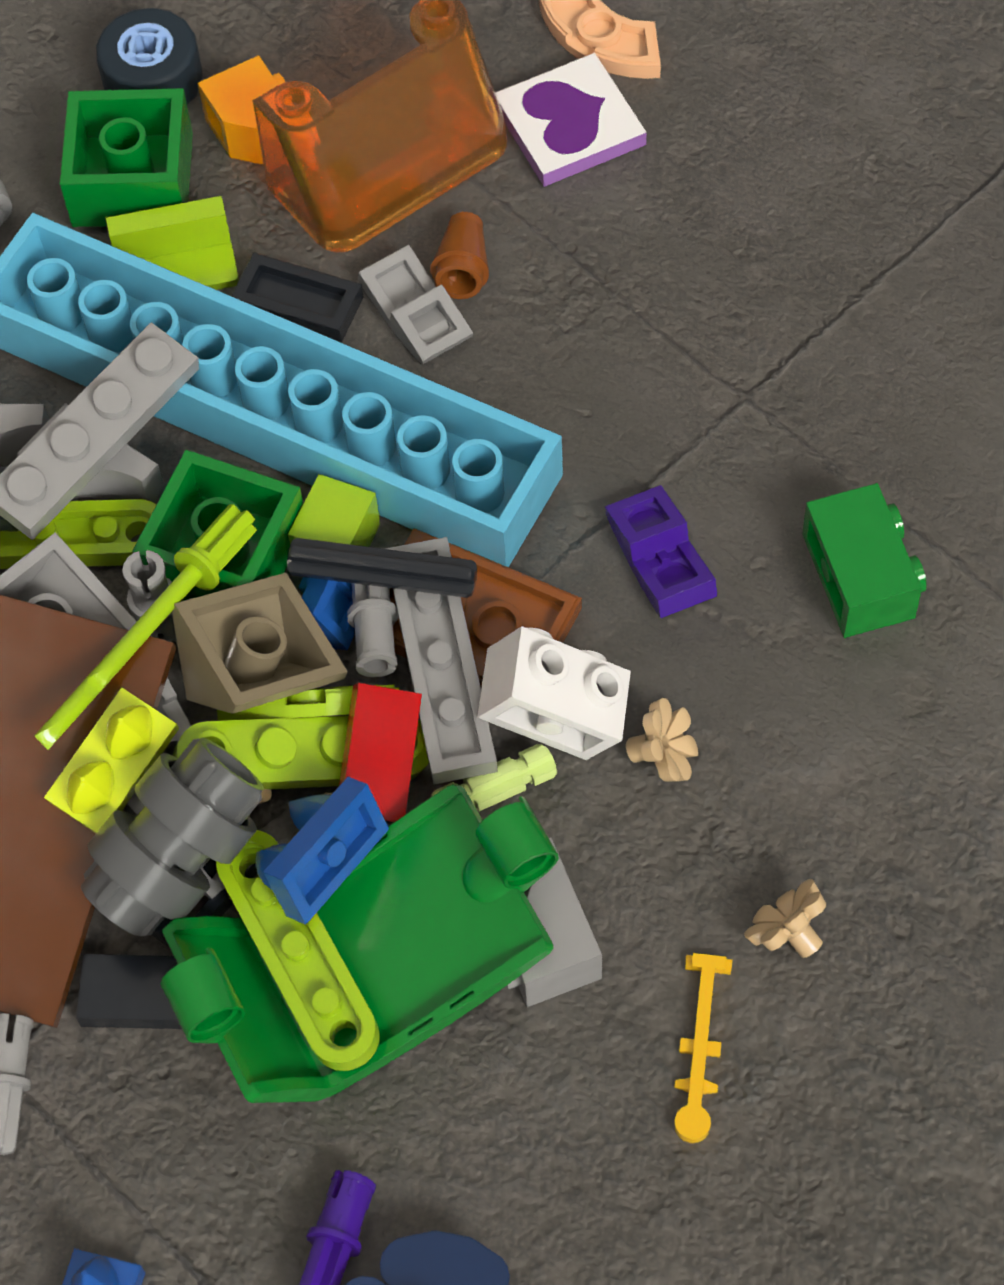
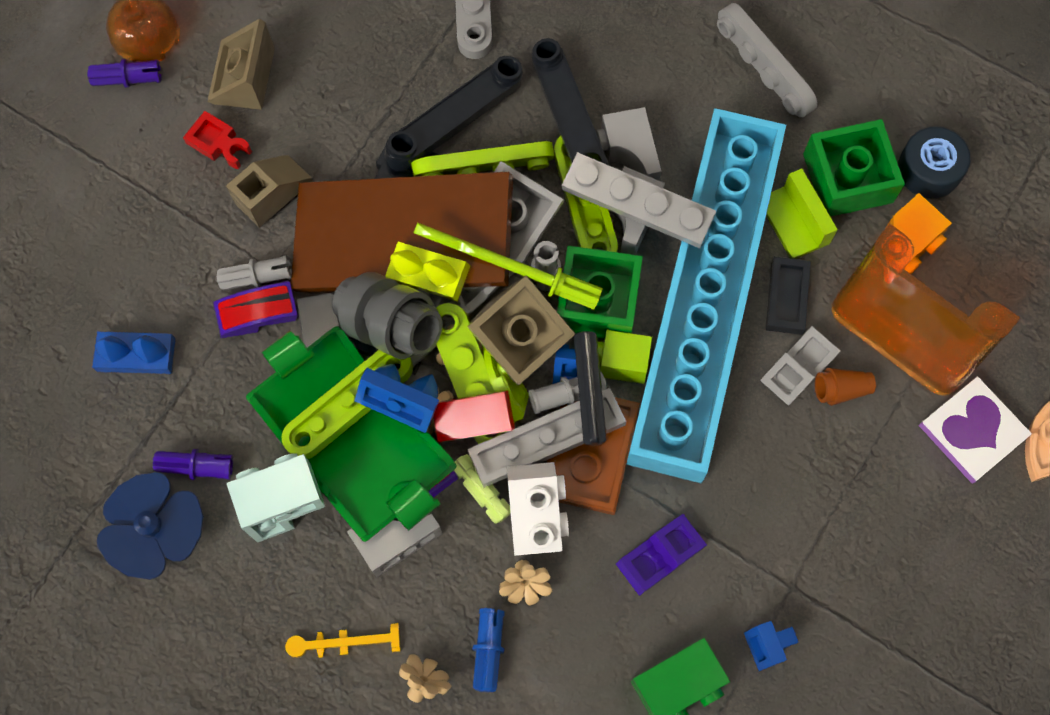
camera: 75 degrees right, 10 degrees up
(73, 1094) = (254, 308): none -> slope
(443, 1094) = (274, 496): none -> light aqua brick
(757, 818) = (488, 650): none -> blue axle
(829, 434) = (768, 644): none -> blue tile

